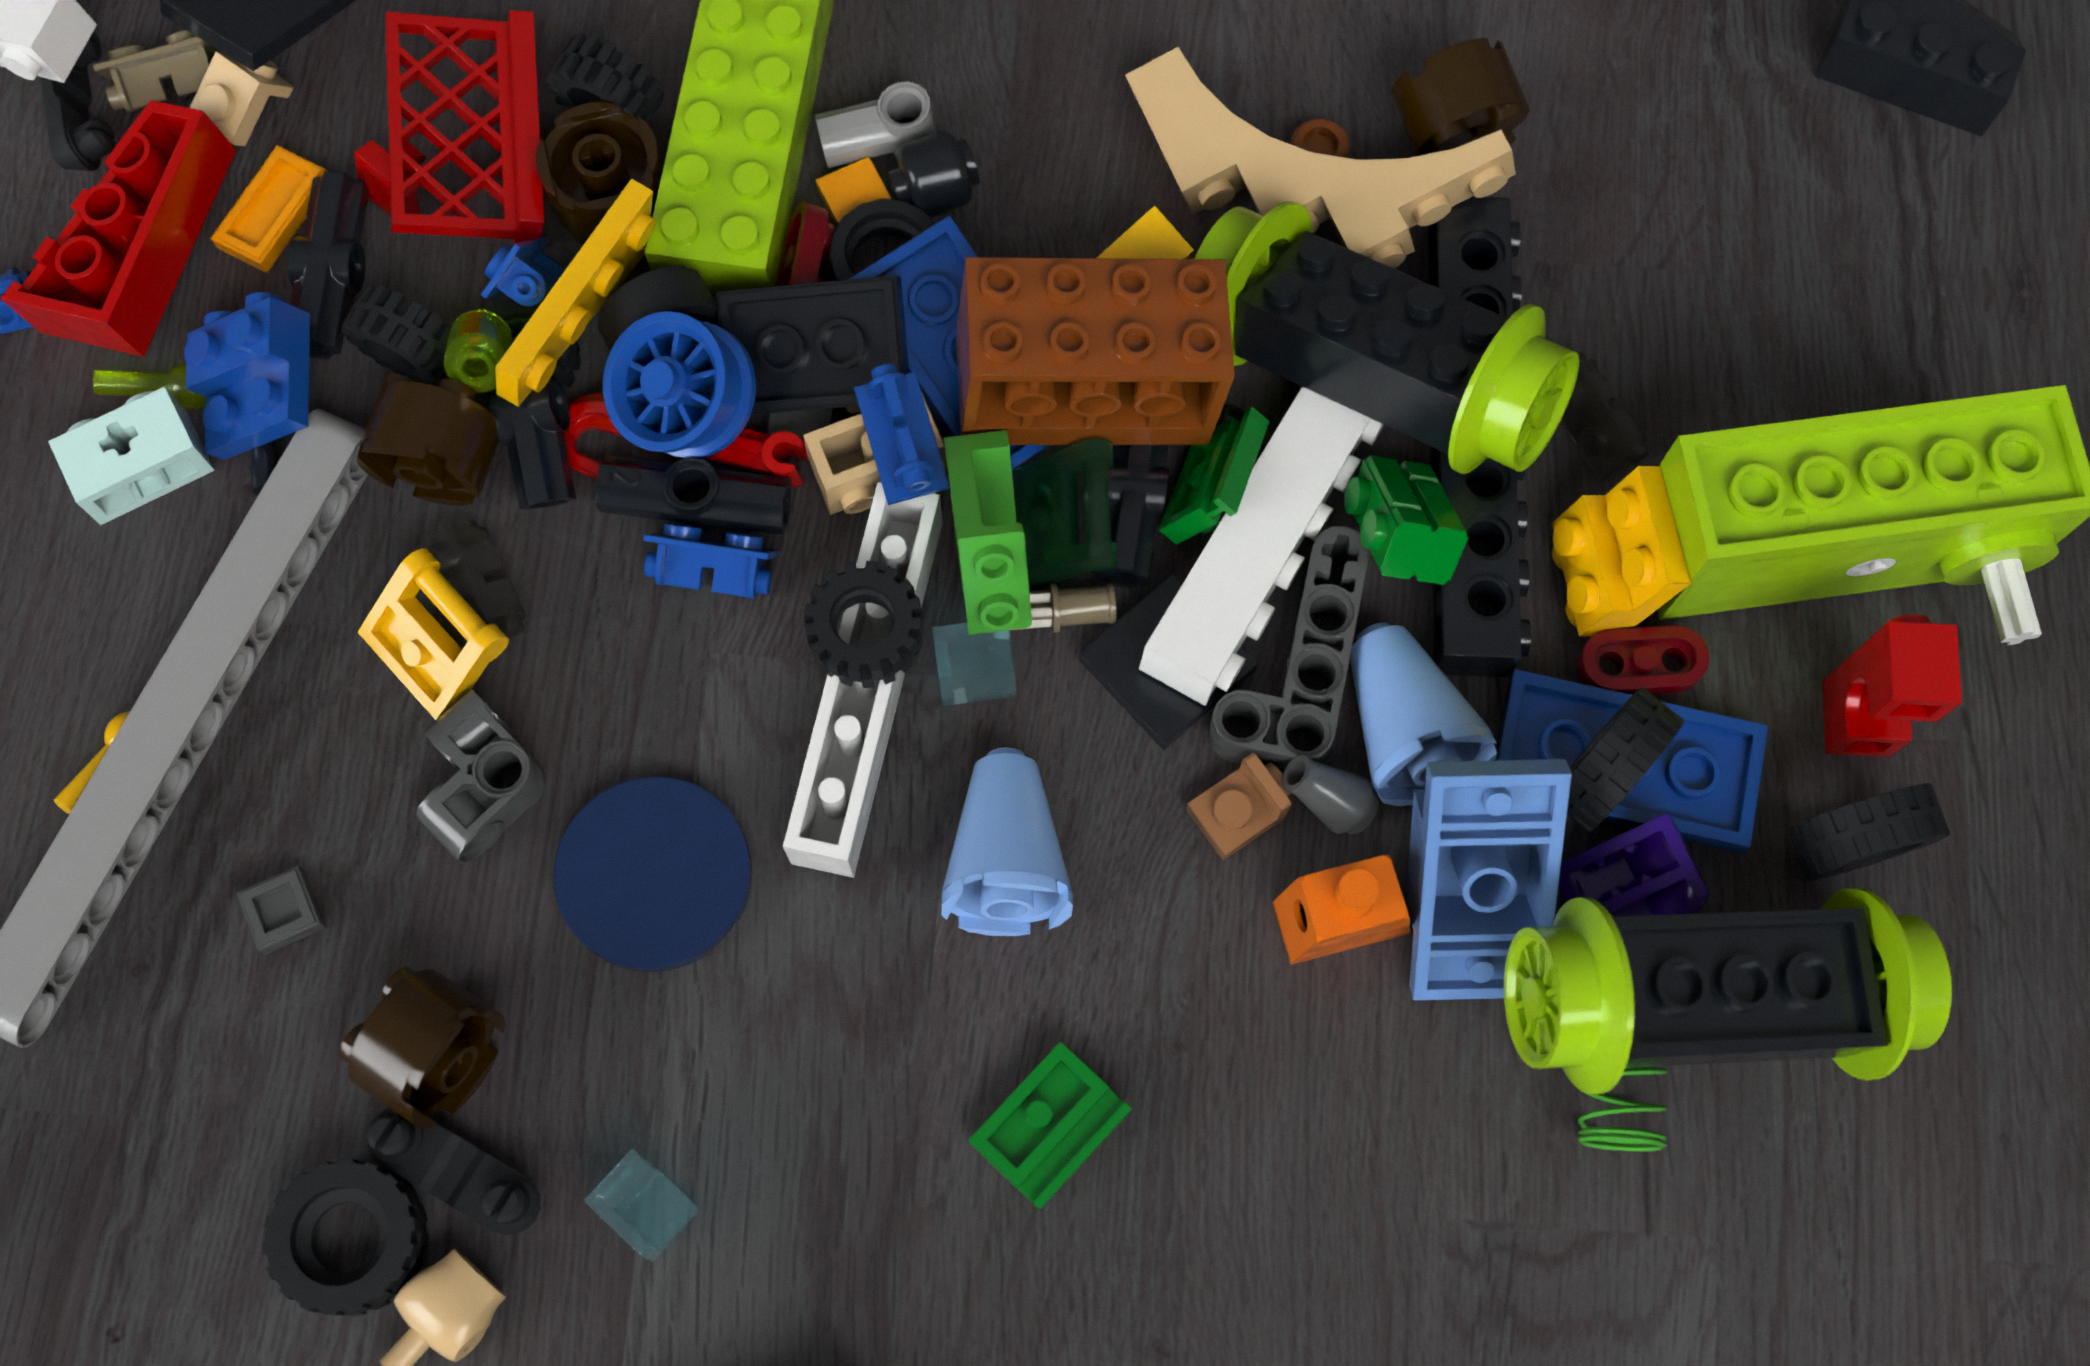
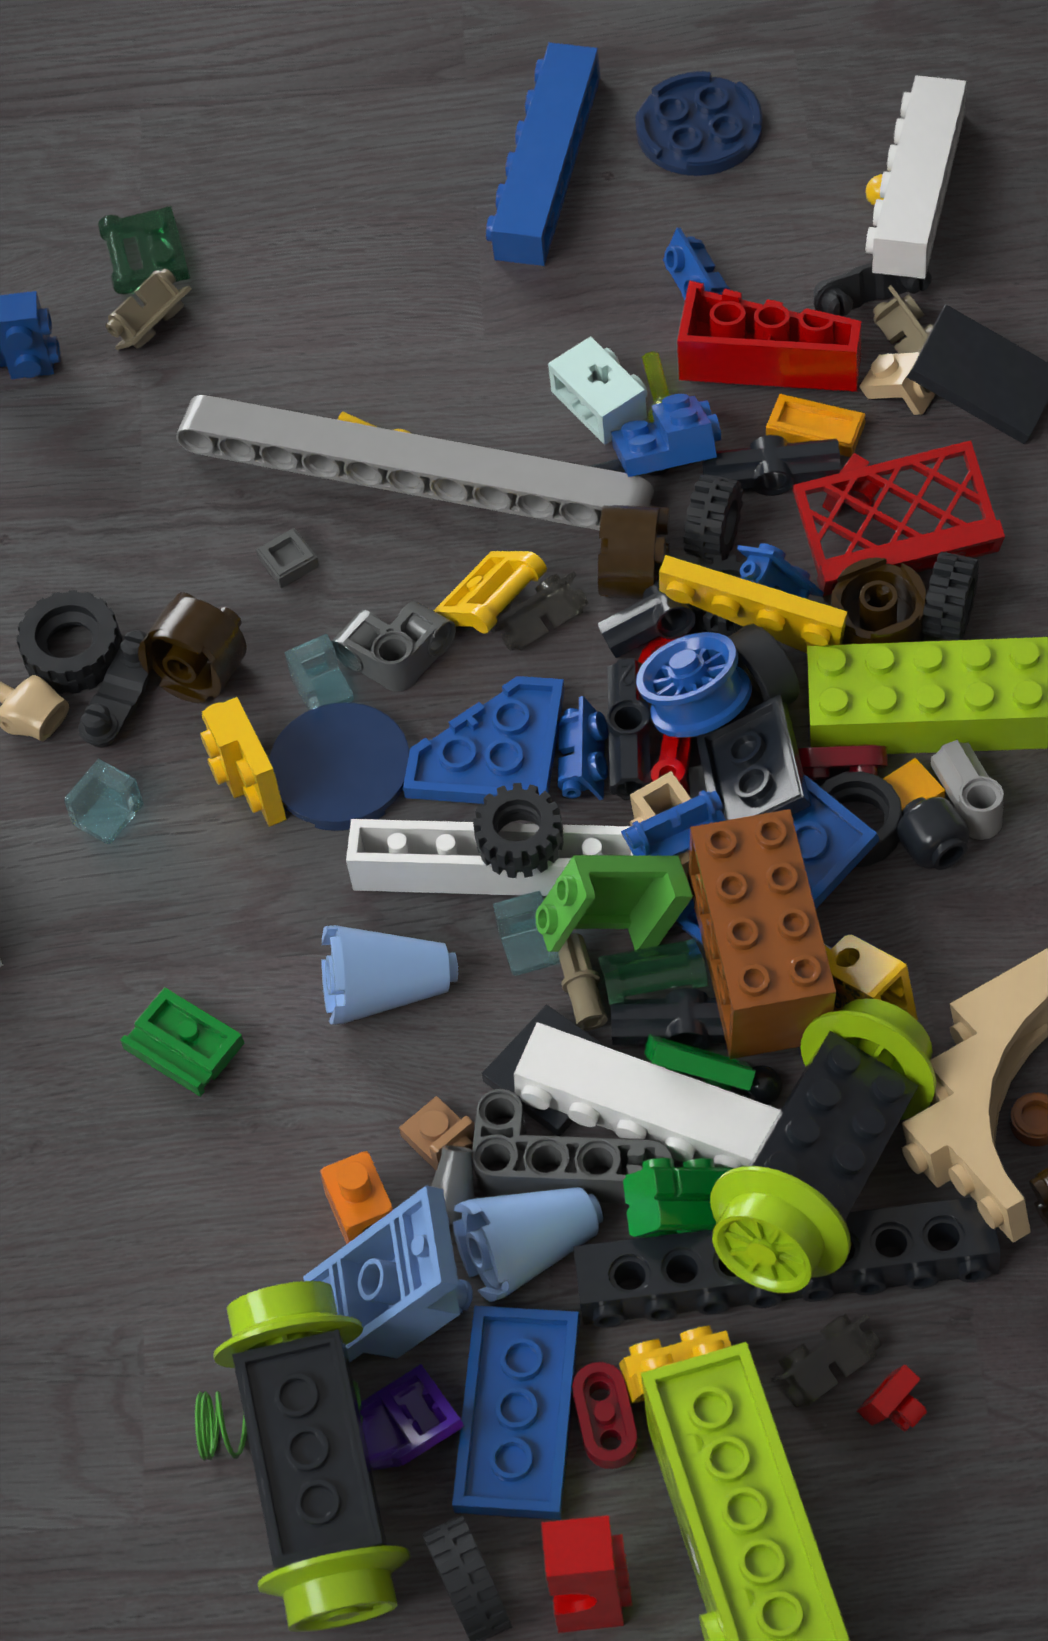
camera: 90 degrees right, 15 degrees down
(475, 348) = (701, 550): clear neon green brick -> none
(506, 885) = (317, 674): none -> clear light blue panel
(620, 996) = (240, 759): none -> yellow plate
(682, 667) = (491, 745): none -> blue plate
(1619, 757) = (489, 1360): black tyre -> none
(1655, 350) = (893, 1401): none -> red tile

